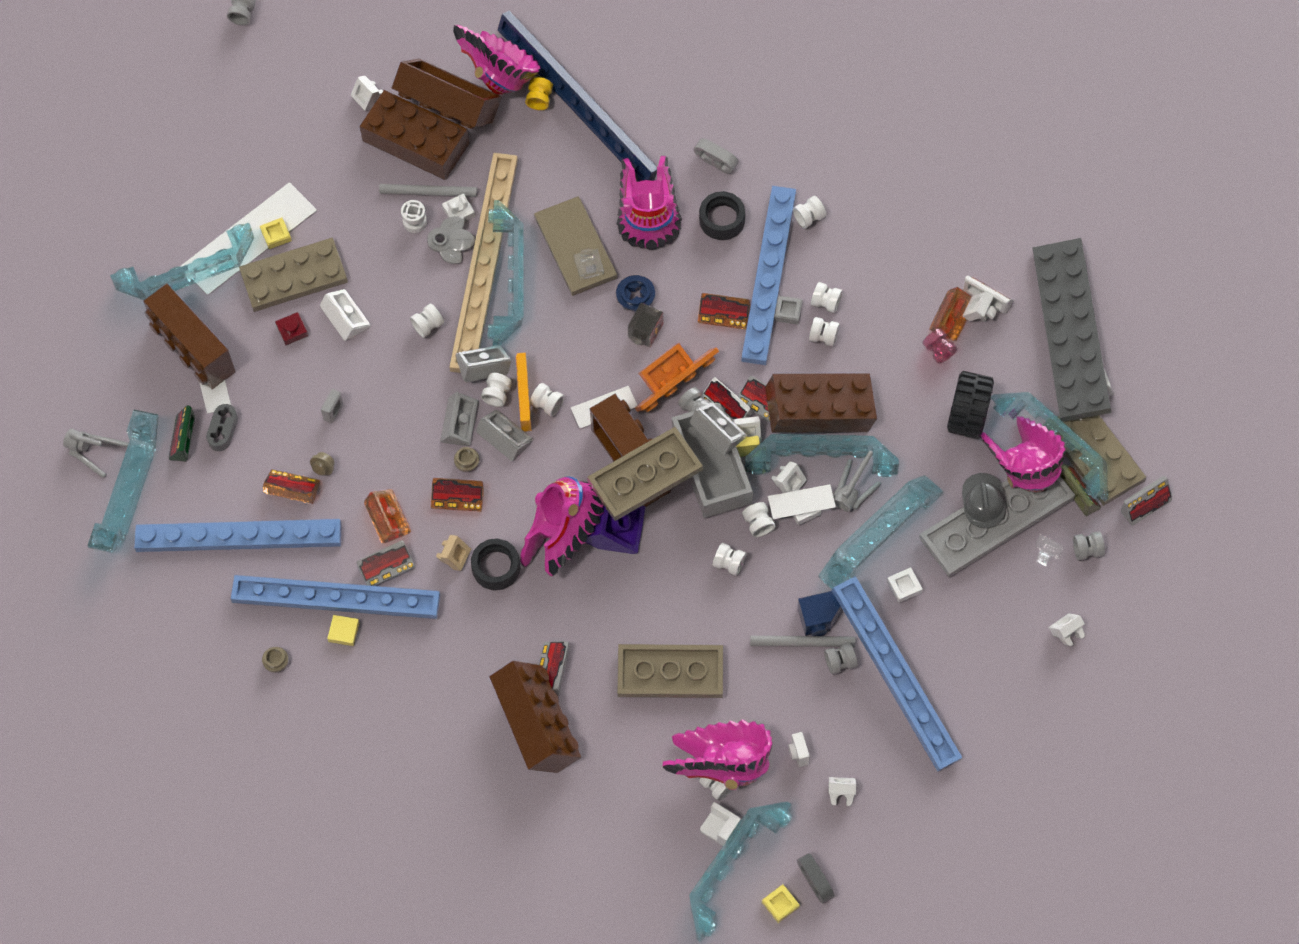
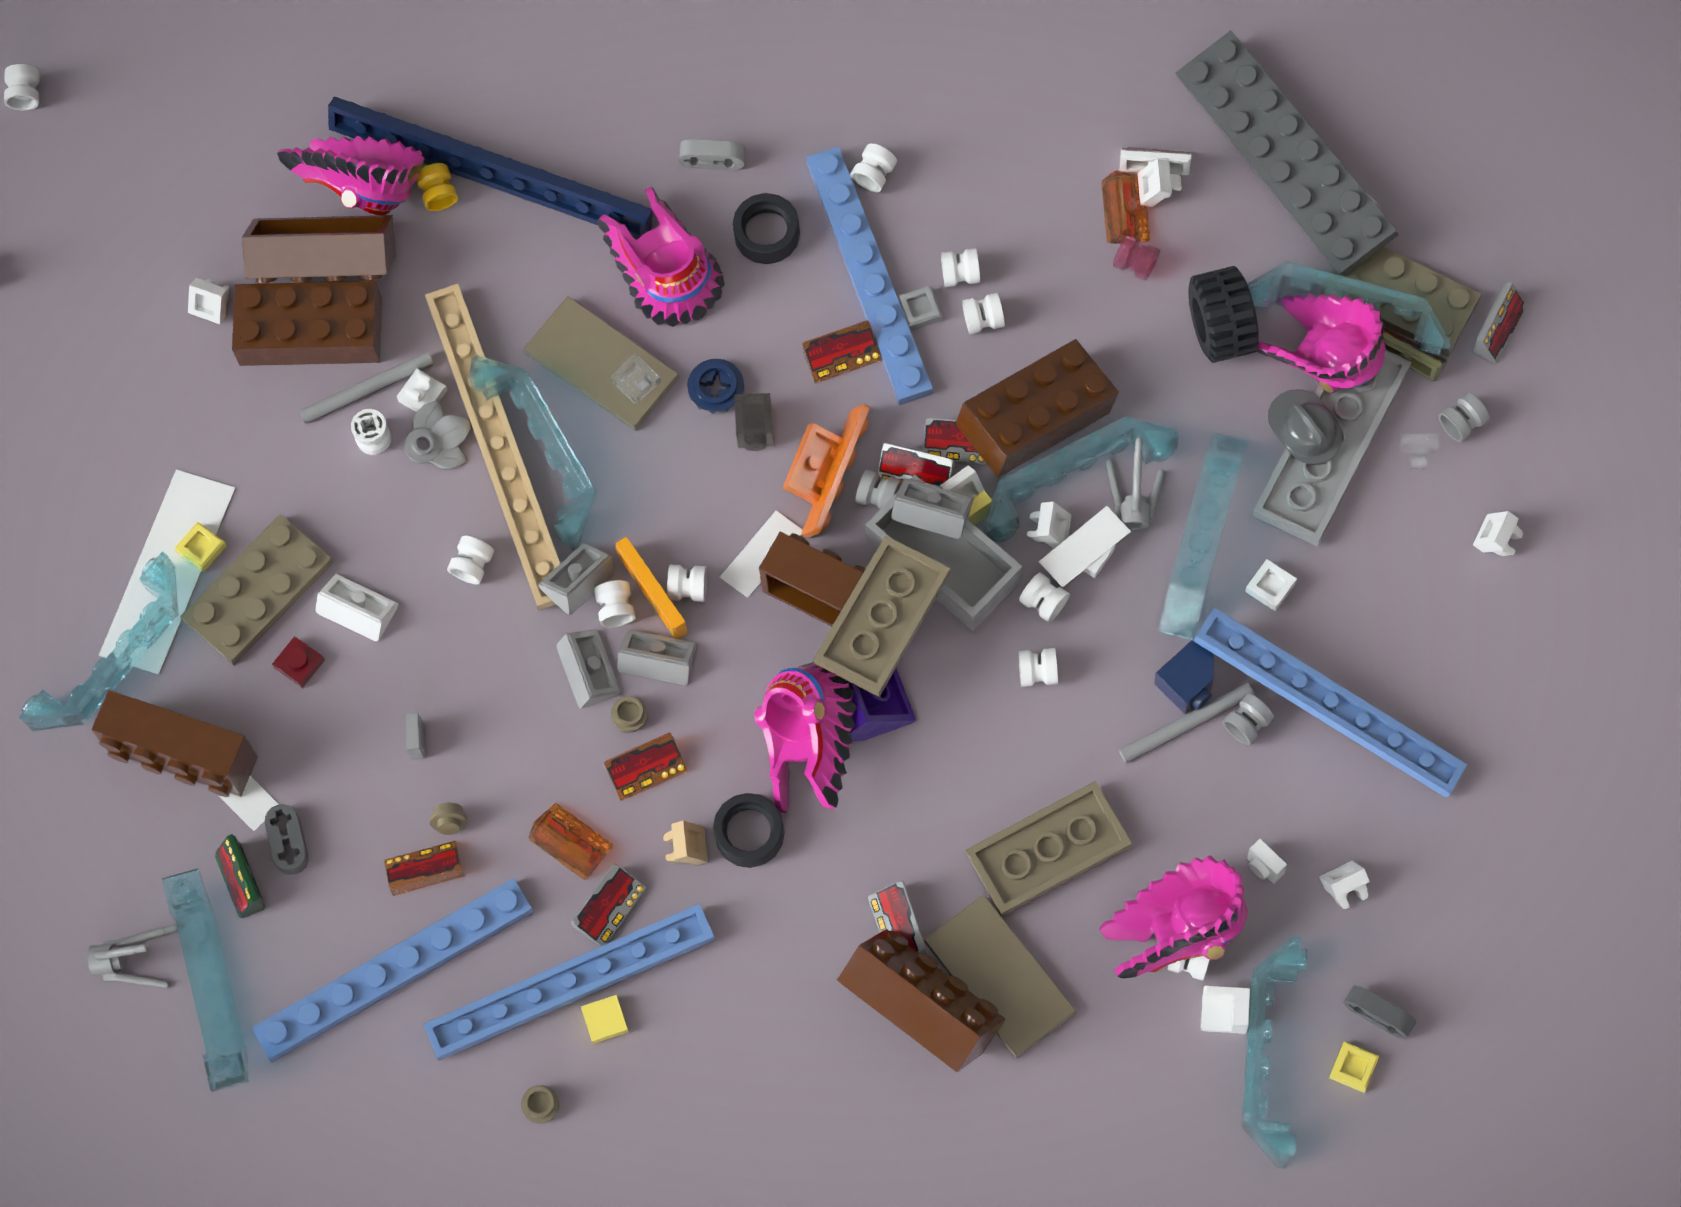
camera: 25 degrees left, 5 degrees up
(597, 729) = (1000, 969): none -> dark tan tile

